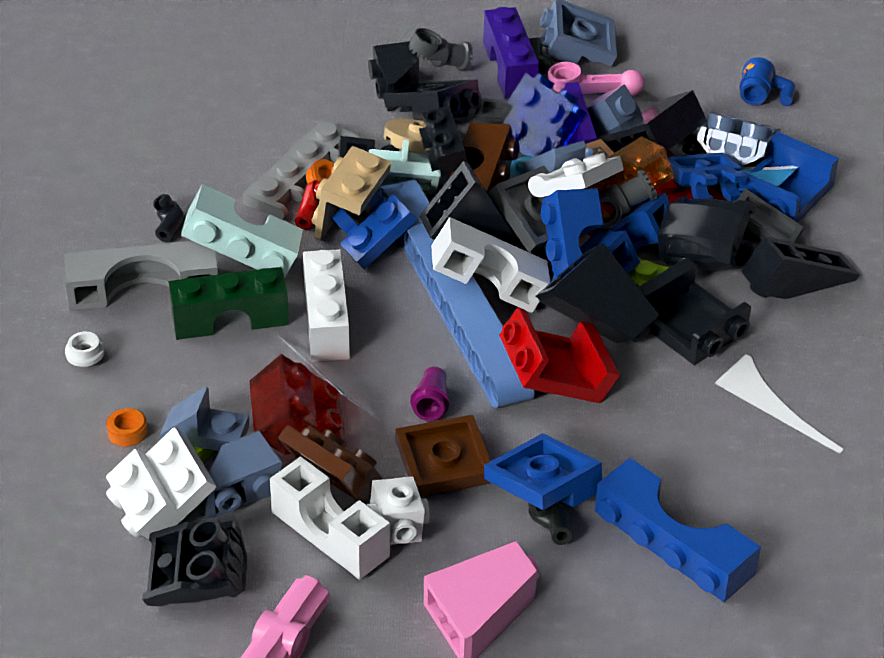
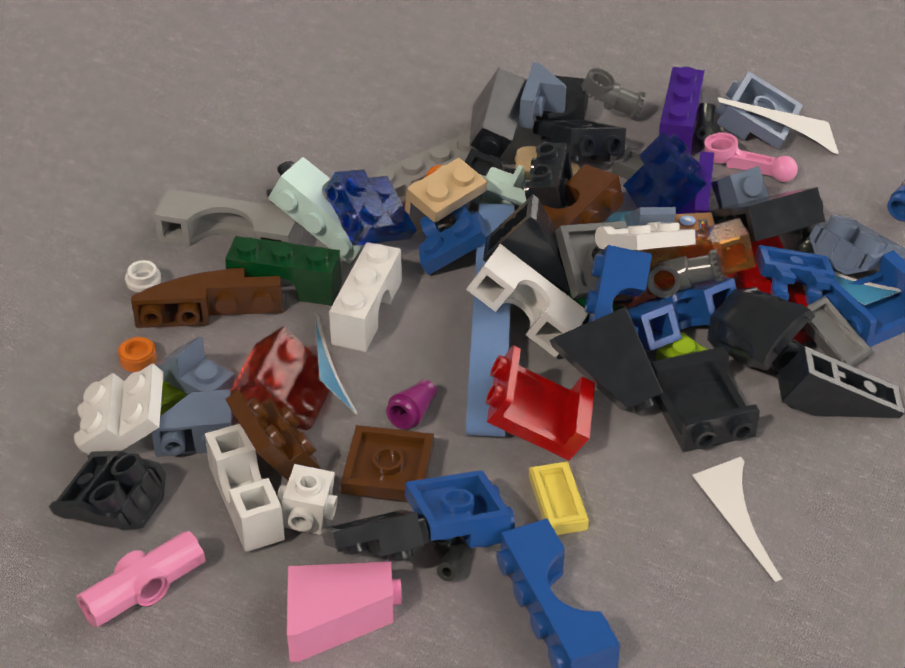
camera: 25 degrees right, 0 degrees up
(158, 352) = (197, 296): none -> reddish brown slope
(286, 218) = (368, 208): none -> clear blue plate
(346, 95) = (497, 113): none -> slope
(383, 66) = (541, 94): none -> sand blue slope
(489, 520) = (386, 534): none -> black plate
(613, 437) = (558, 497): none -> light yellow tile
(632, 38) = (813, 128): none -> white sticker

